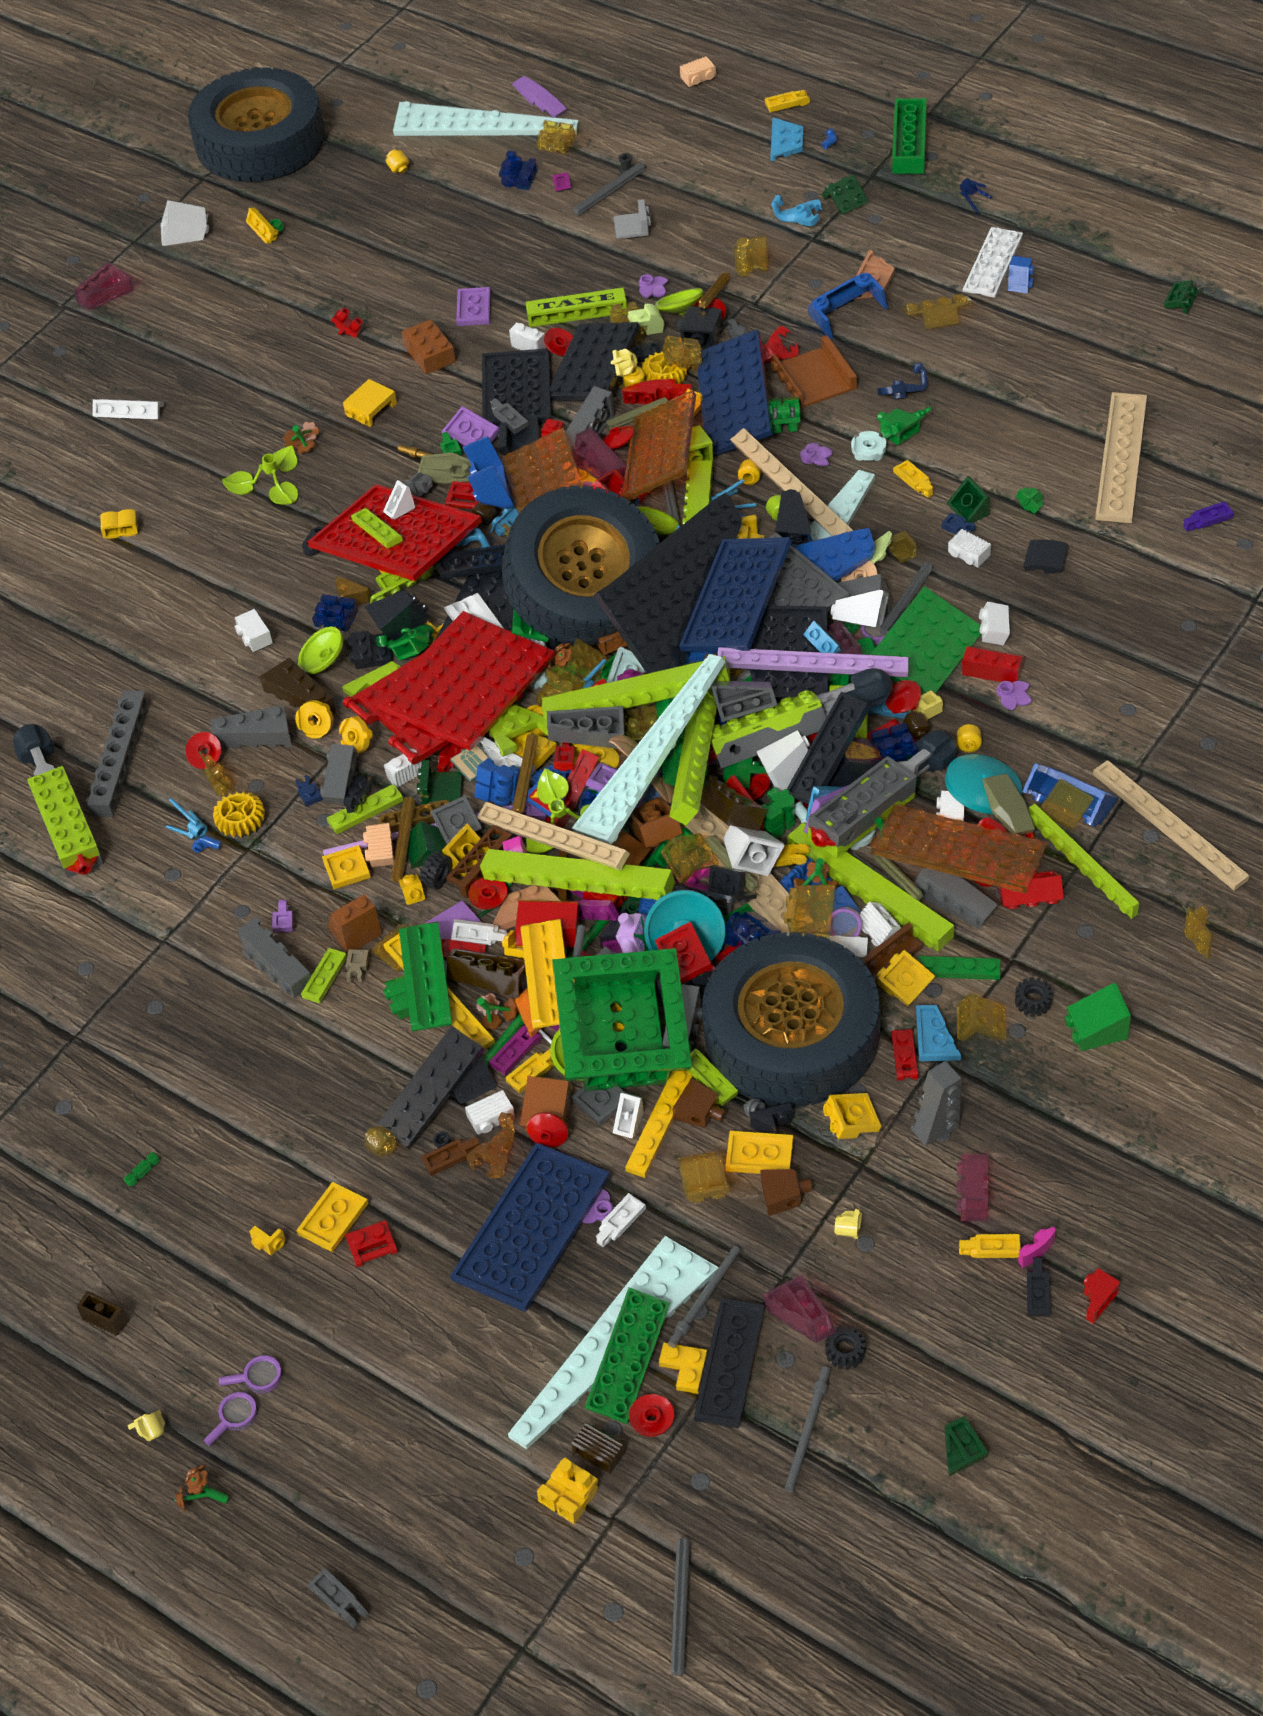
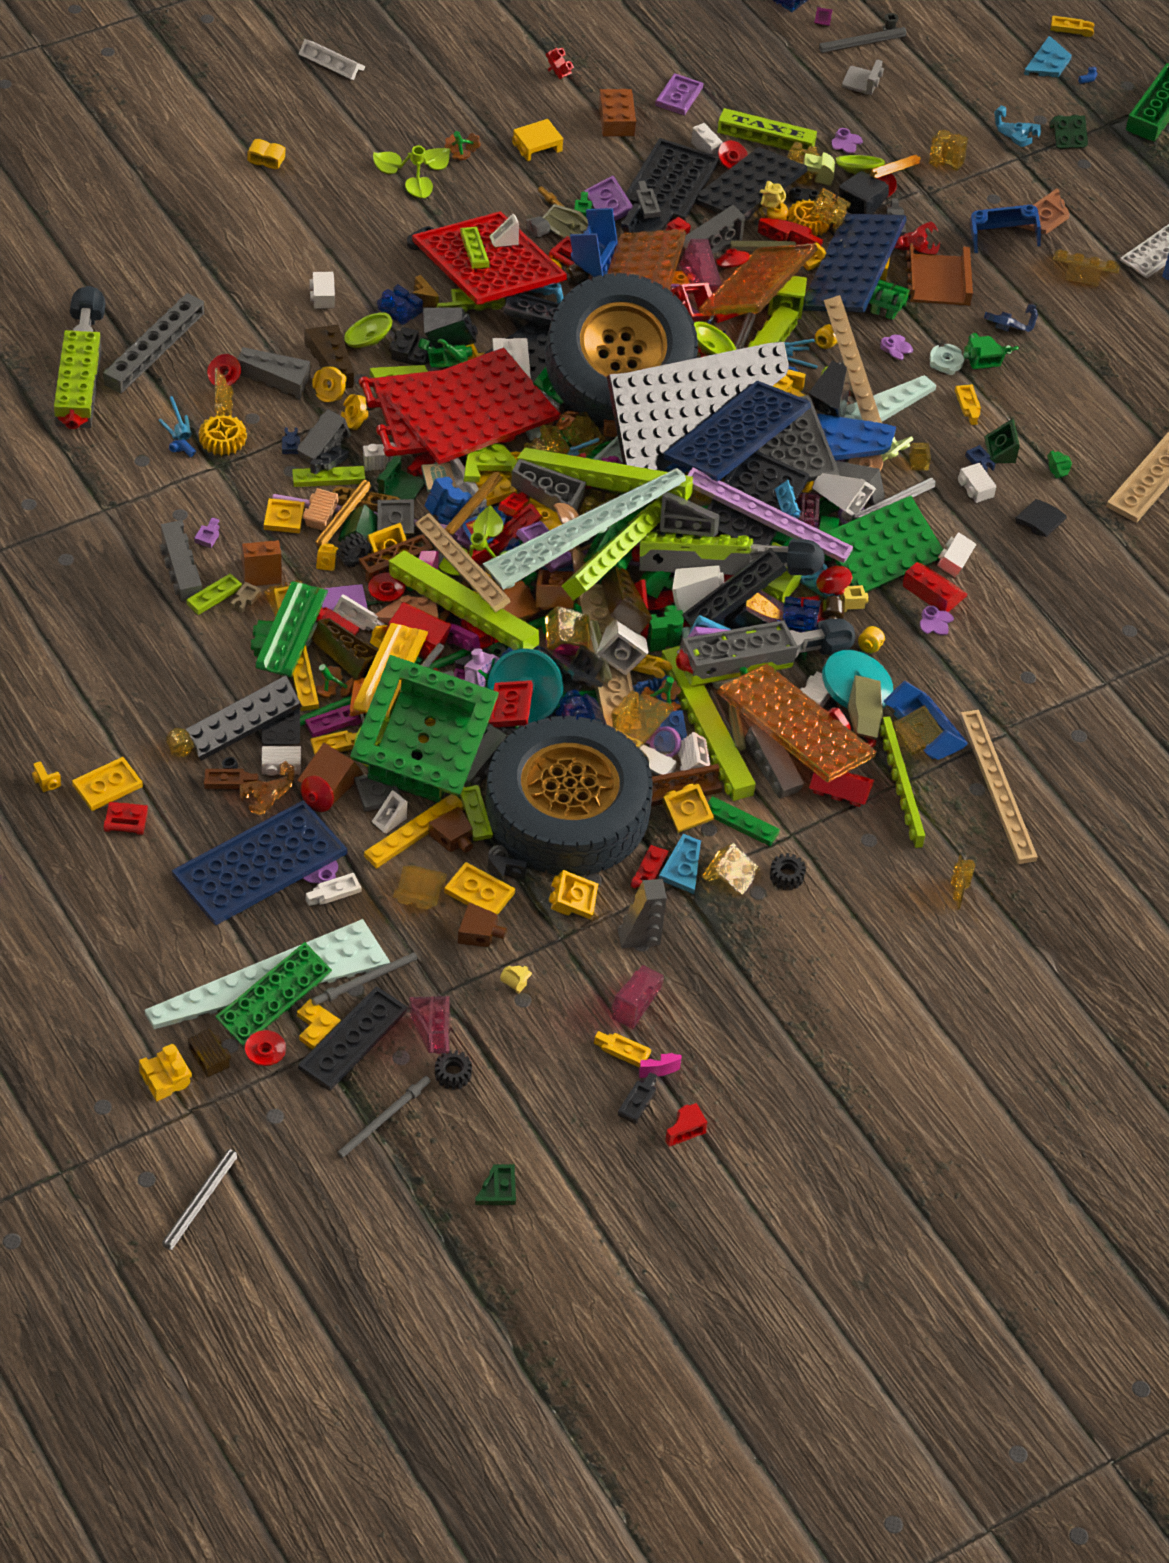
camera: 15 degrees right, 0 degrees up
(1099, 1019) = (828, 912): green slope -> none

